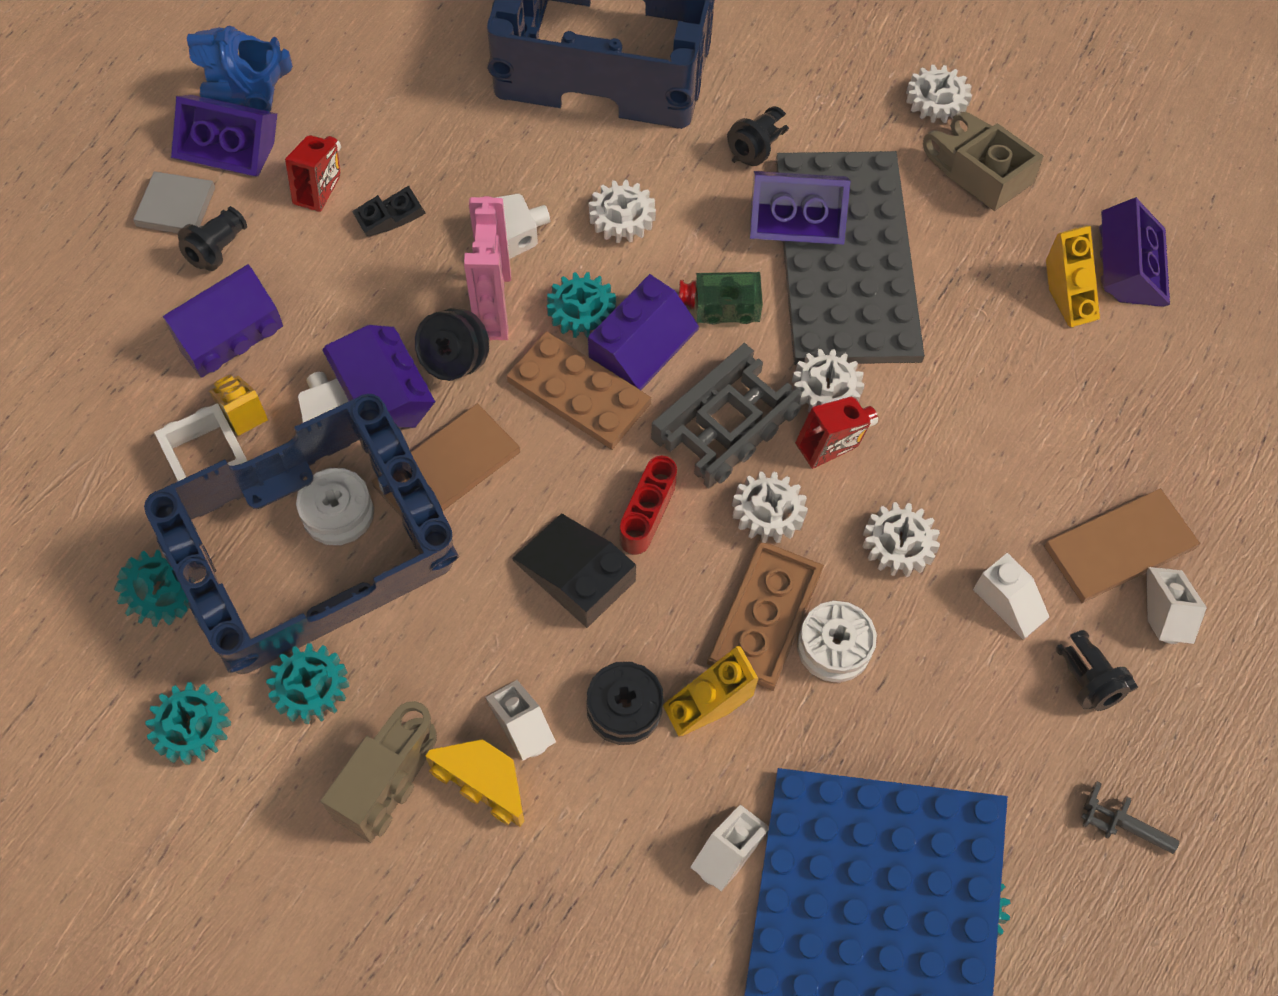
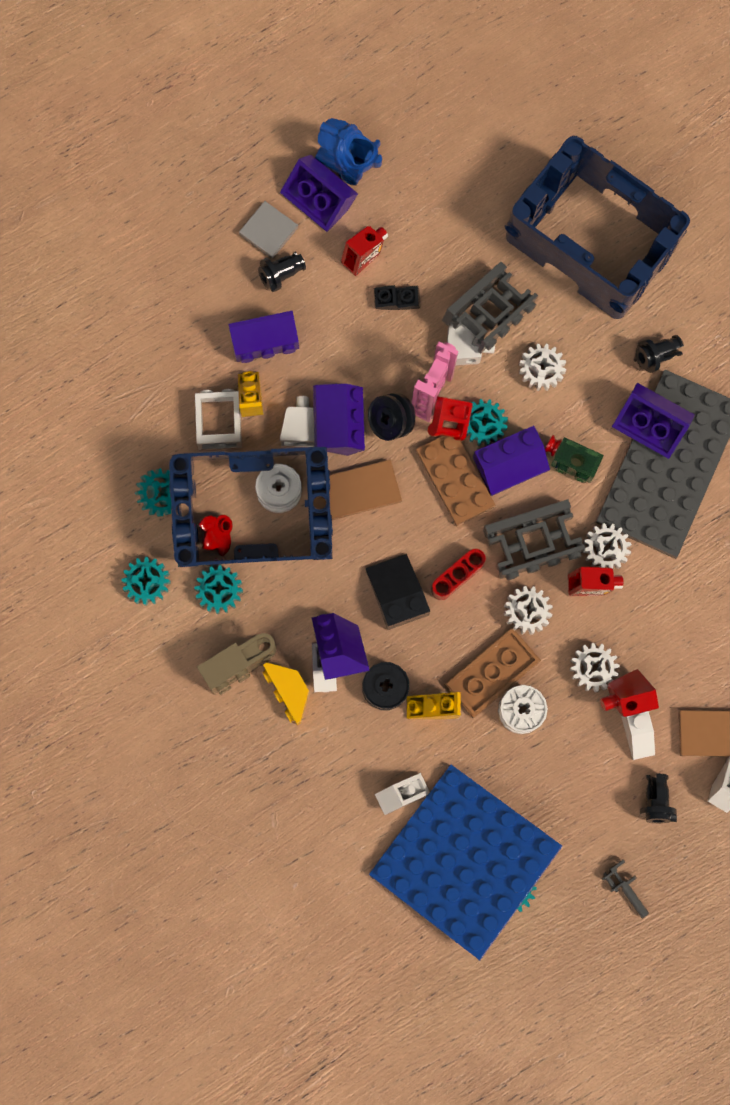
camera: 25 degrees right, 15 degrees up
(268, 602) = (215, 534): none -> red plate
(513, 145) = (481, 294): none -> dark grey fence
(526, 674) = (339, 646): none -> dark purple slope
(534, 296) = (452, 411): none -> red plate
(974, 545) = (630, 695): none -> red torso

